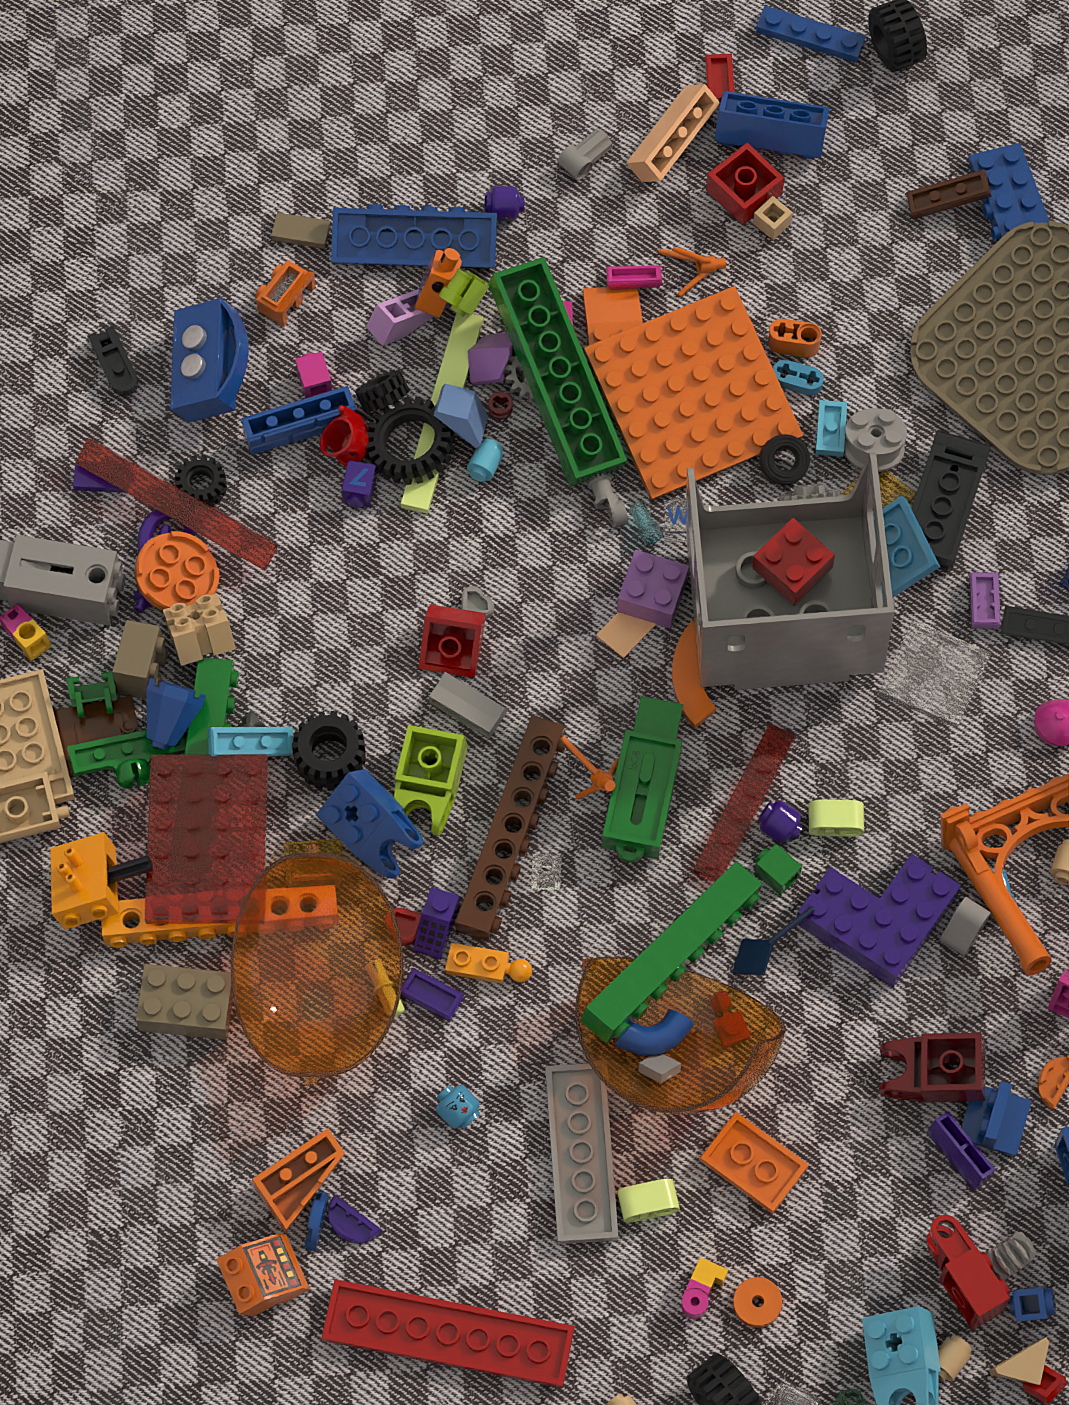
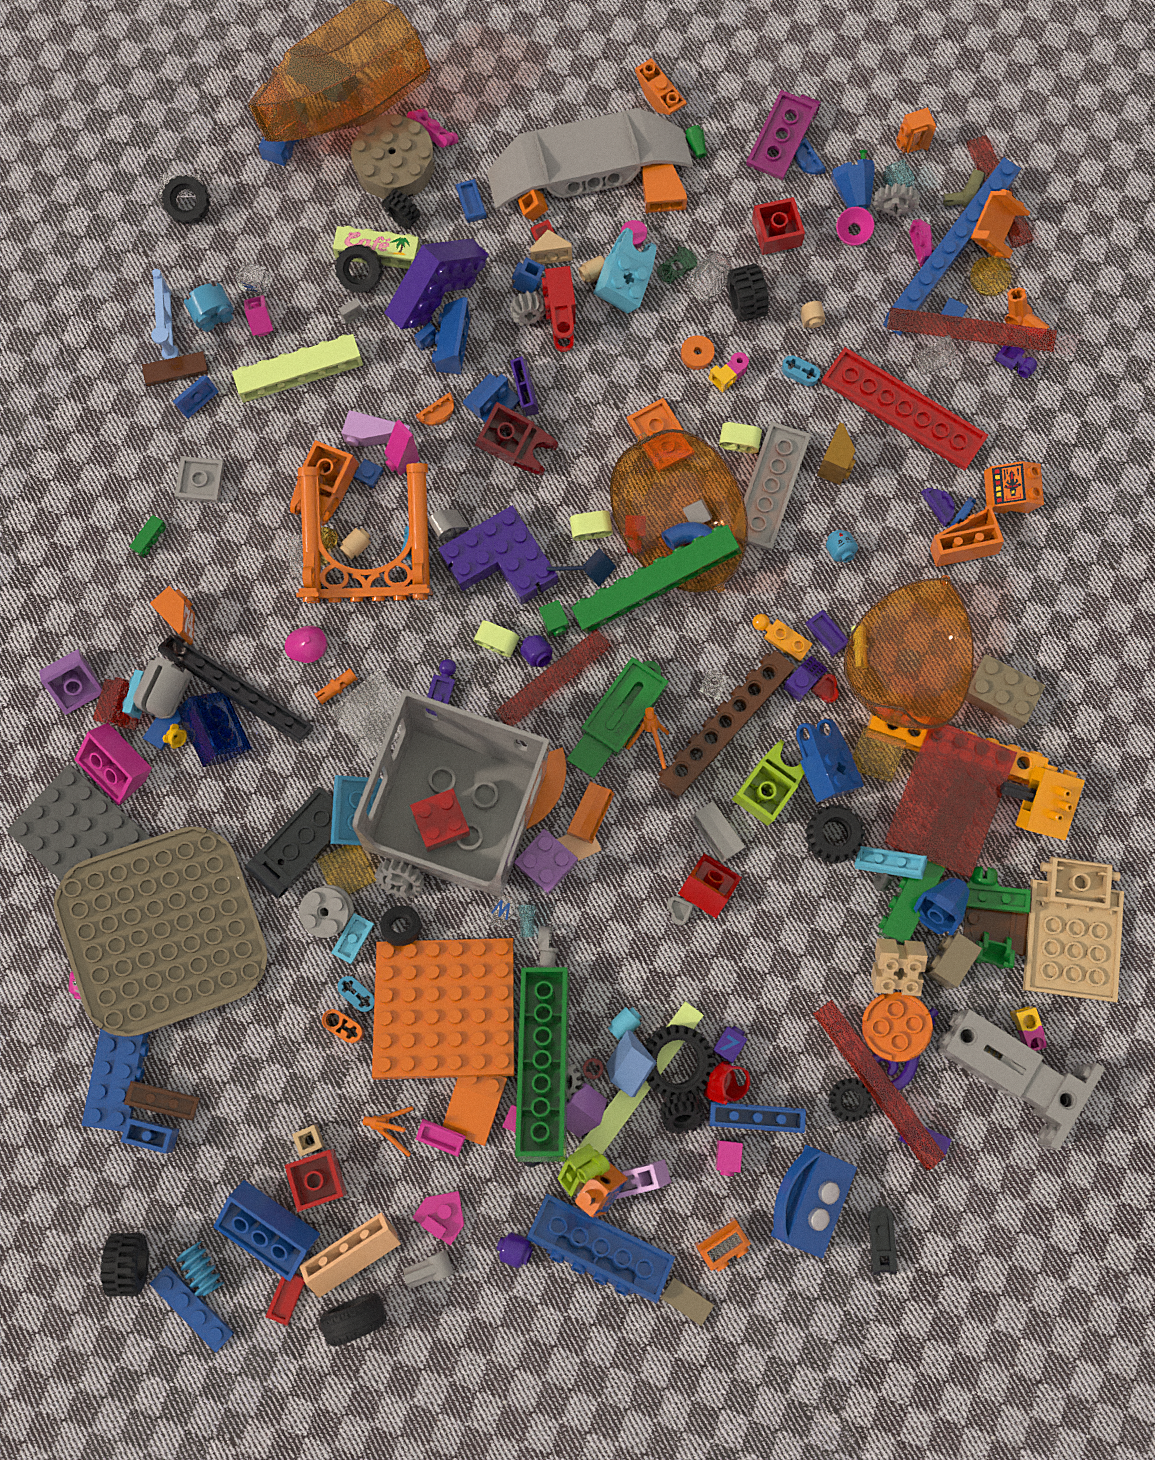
camera: 155 degrees left, 10 degrees up
(508, 1212) = (839, 457): none -> pearl gold slope
(596, 207) = (441, 1216): none -> dark pink plate
(609, 1325) = (800, 370): none -> dark azure beam
(627, 664) = (590, 812): none -> orange piece
(639, 75) = (353, 1319): none -> black tyre
(792, 1001) = (591, 525): none -> yellowish green beam
(819, 64) = (199, 1270): none -> dark azure piece
(871, 729) = (442, 686): none -> dark purple plate
(941, 157) = (150, 1135): none -> blue brick
(984, 600) = (311, 755): medium lavender plate -> none
(999, 688) = (335, 686): none -> orange pin

